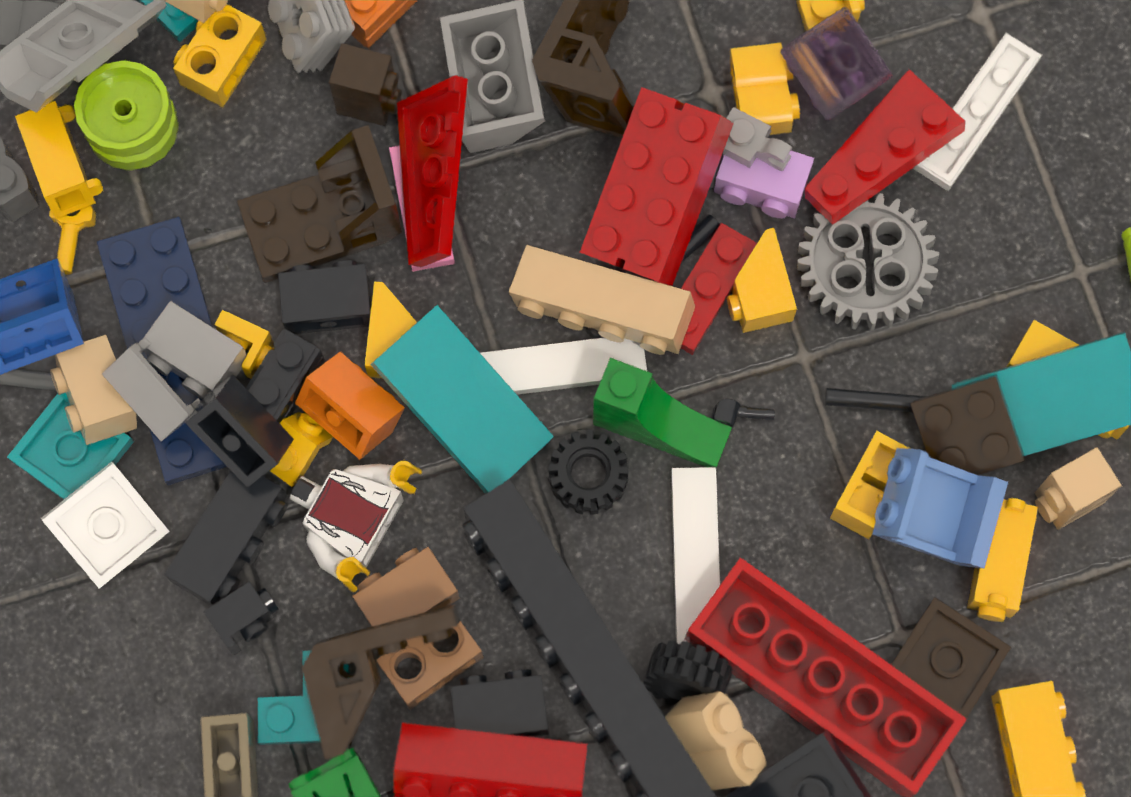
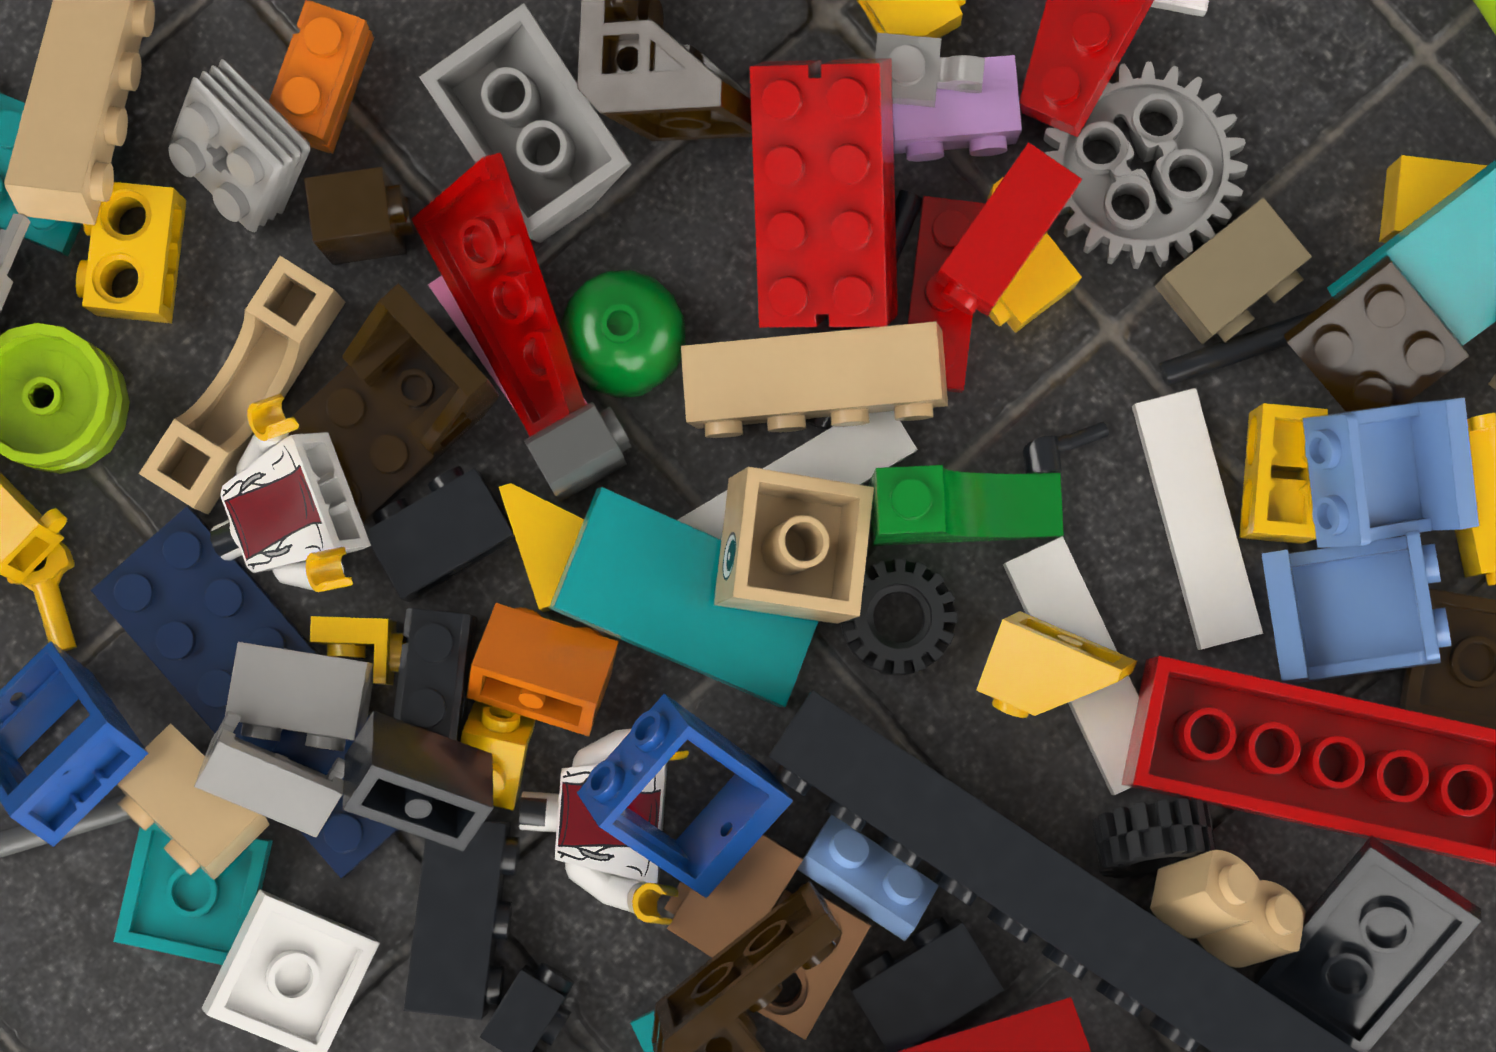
camera: 25 degrees left, 10 degrees up
(214, 181) = (273, 347): none -> tan arch
(241, 234) = (289, 505): none -> torso
(416, 546) = (704, 850): none -> blue window
(434, 280) = (579, 449): none -> dark grey brick
(495, 226) = (623, 333): none -> green cylinder
(495, 625) = (868, 877): none -> light blue plate
(540, 392) = (794, 545): none -> tan brick
(666, 539) = (1045, 666): none -> yellow slope
(759, 257) = (1006, 231): none -> red brick
(807, 495) = (1197, 519): none -> white tile
(882, 589) = (1355, 609): none -> medium blue panel
(897, 351) = (1234, 271): none -> dark tan brick

